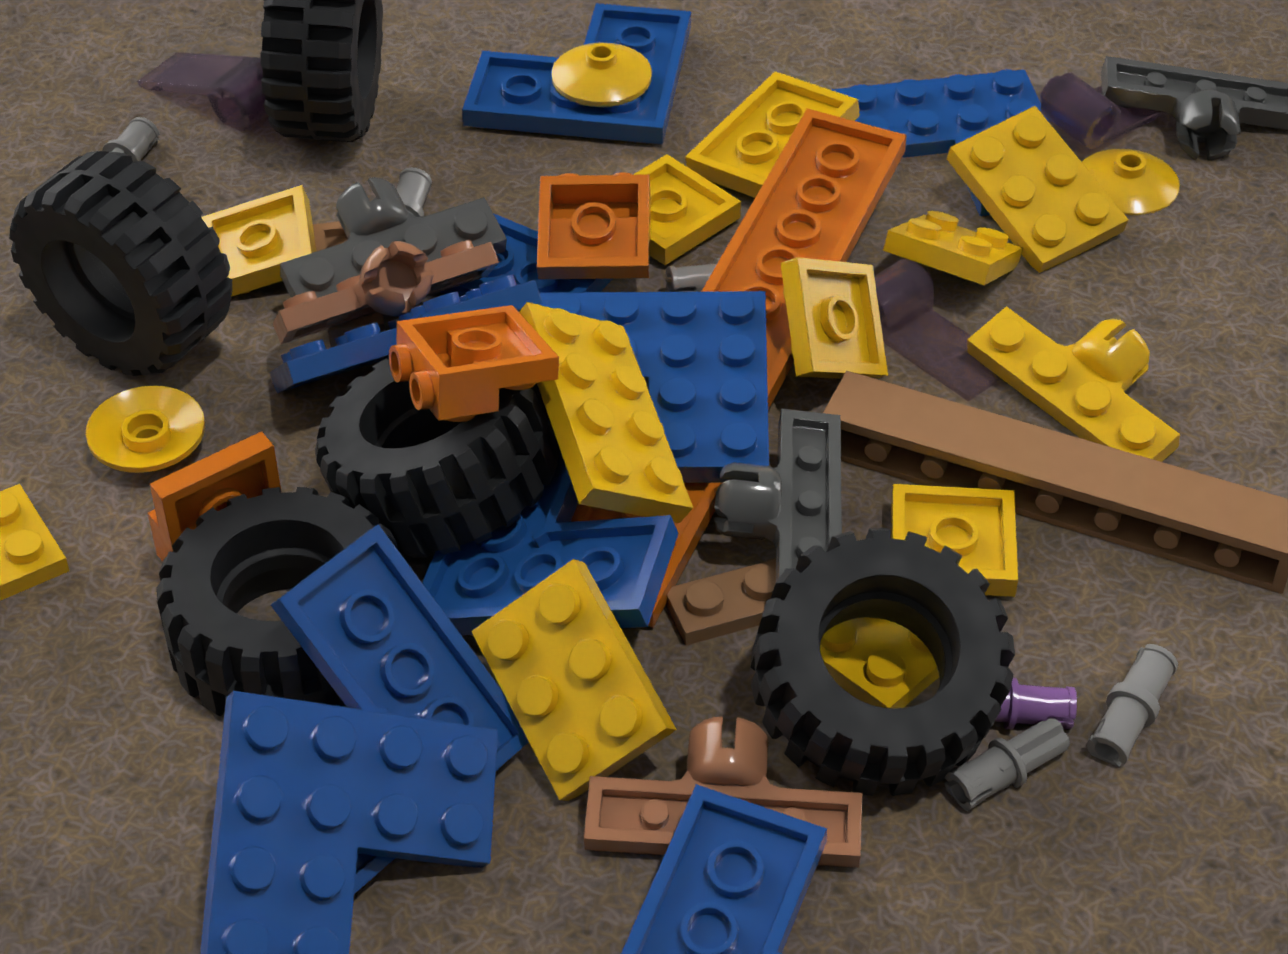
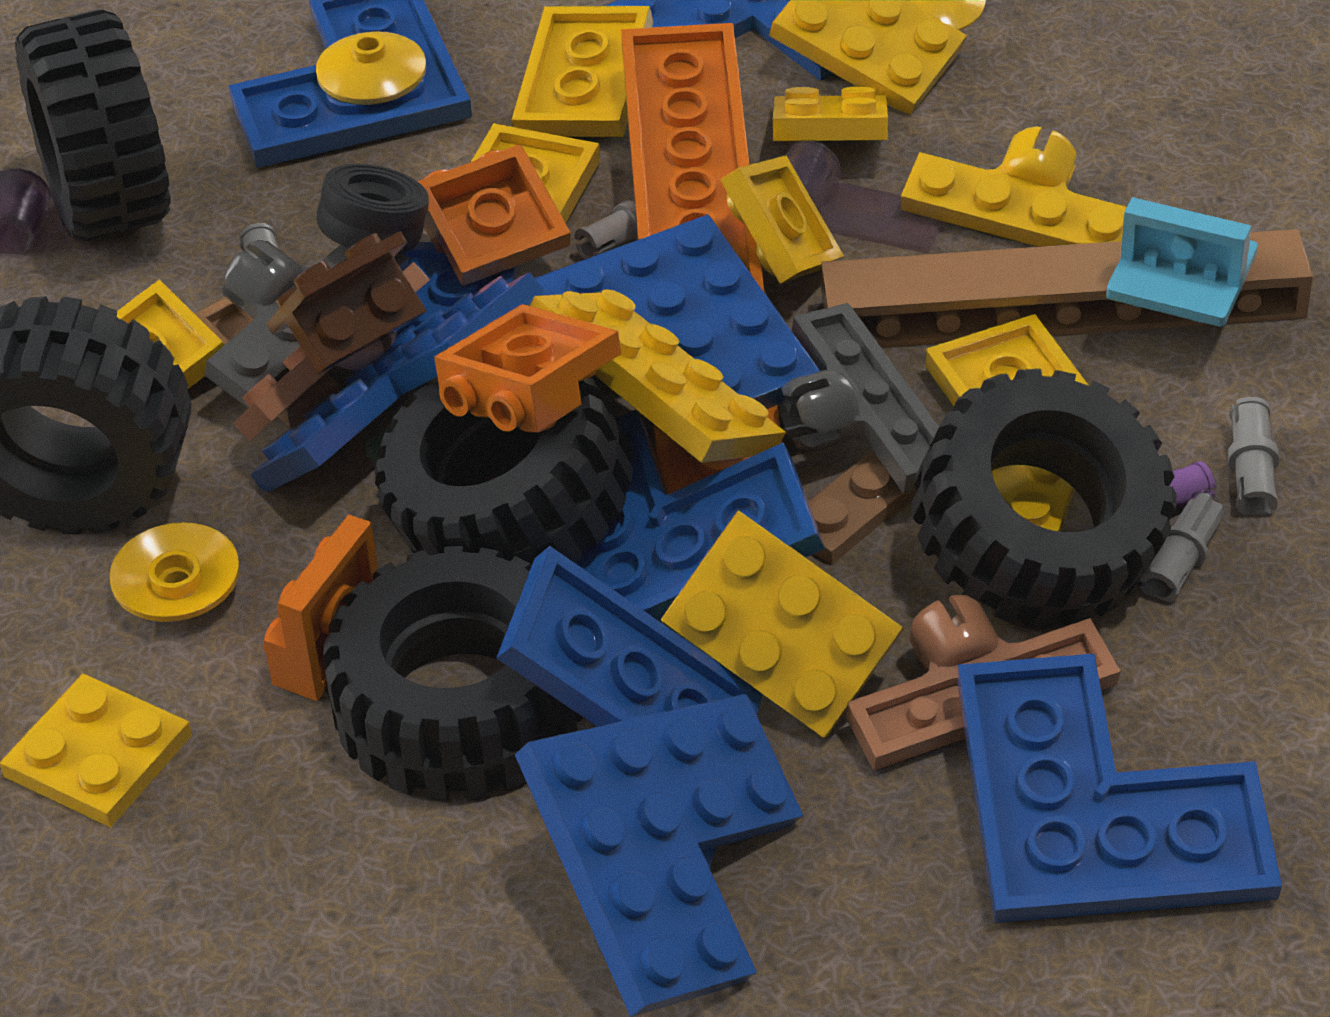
camera: 25 degrees left, 0 degrees up
(384, 251) = (348, 305): none -> reddish brown bracket
(490, 185) = (369, 201): none -> black tyre
(1161, 494) = (1181, 262): none -> medium azure bracket

